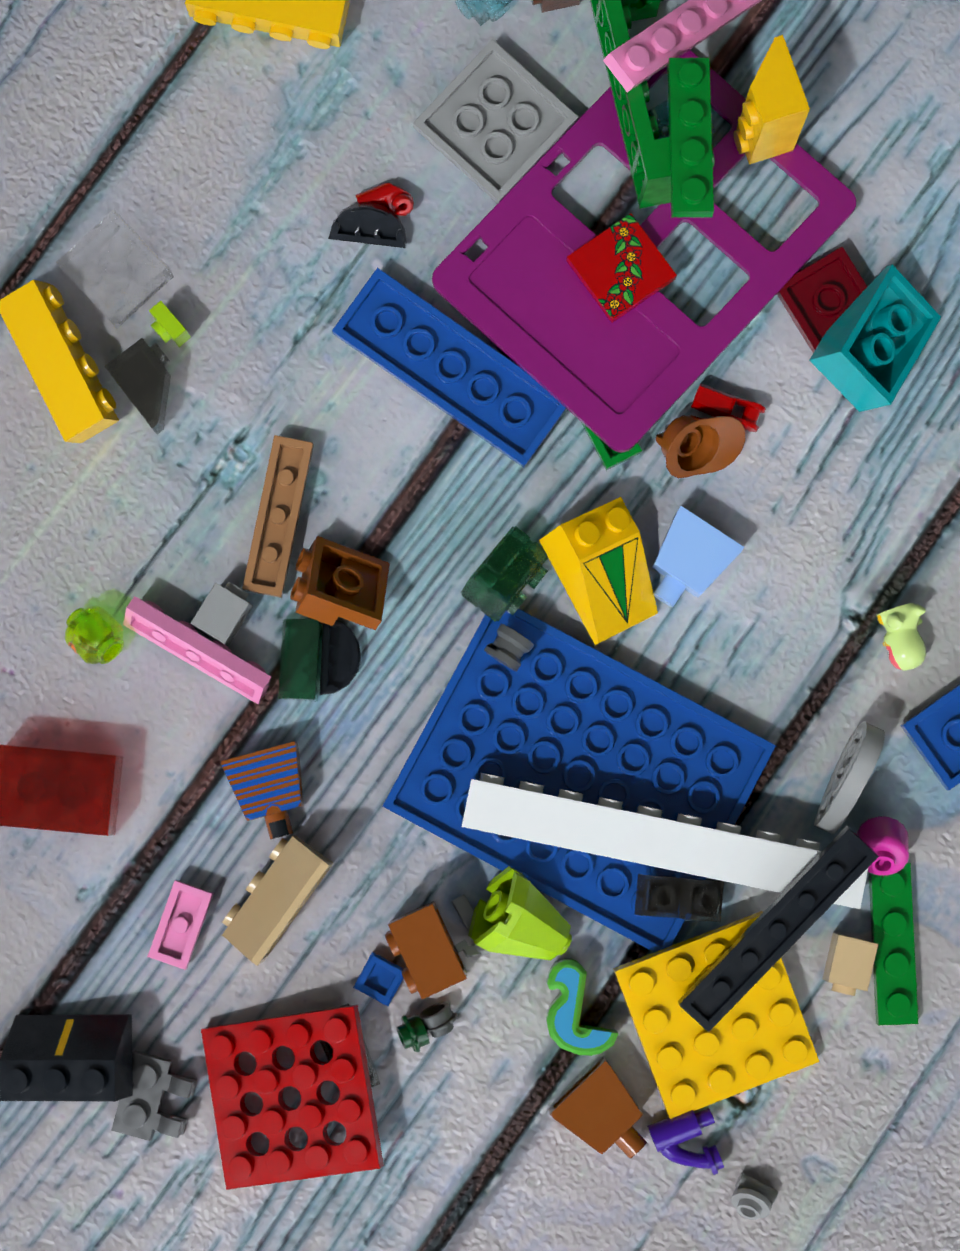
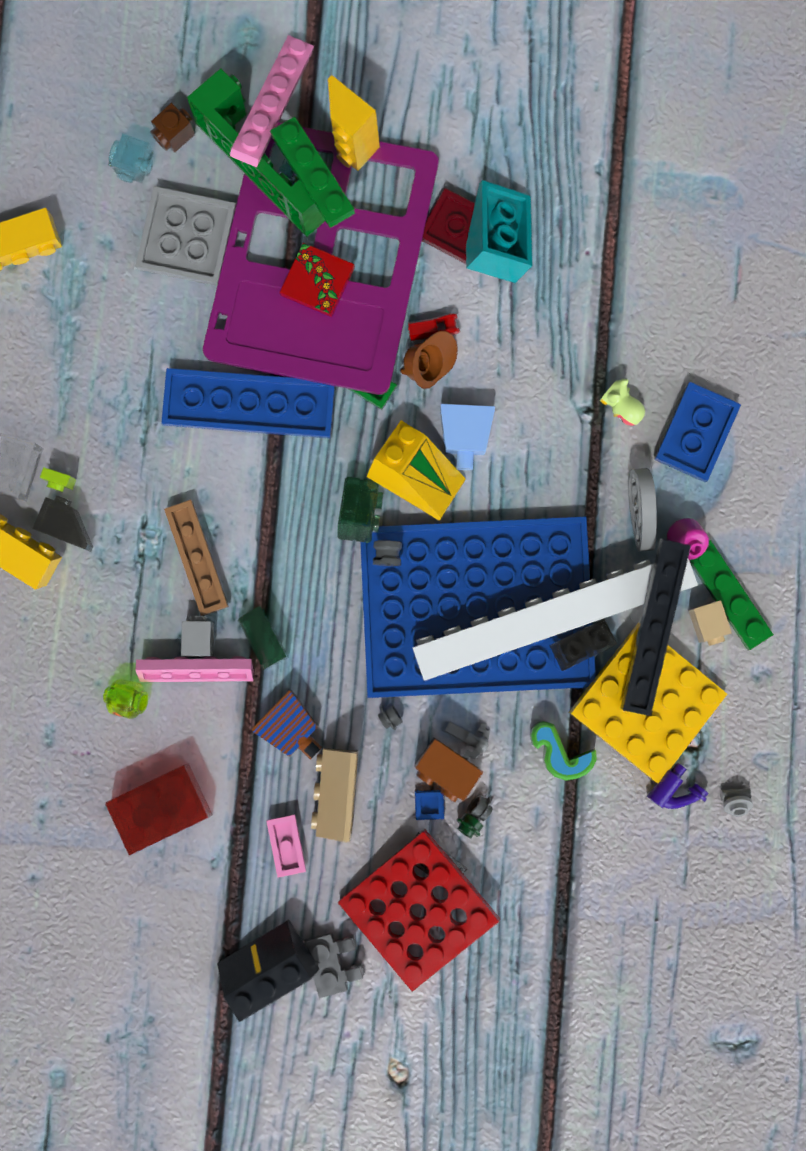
camera: 30 degrees left, 0 degrees up
(338, 658) = (285, 621): black tile -> none
(340, 584) = (260, 576): dark orange plate -> none
(369, 225) = (145, 345): black tile -> none
(390, 196) = (146, 321): red arm -> none
(395, 845) = (389, 716): none -> dark grey plate
(518, 920) = (493, 717): lime cone -> none
(600, 1111) = (613, 804): dark orange torso -> none

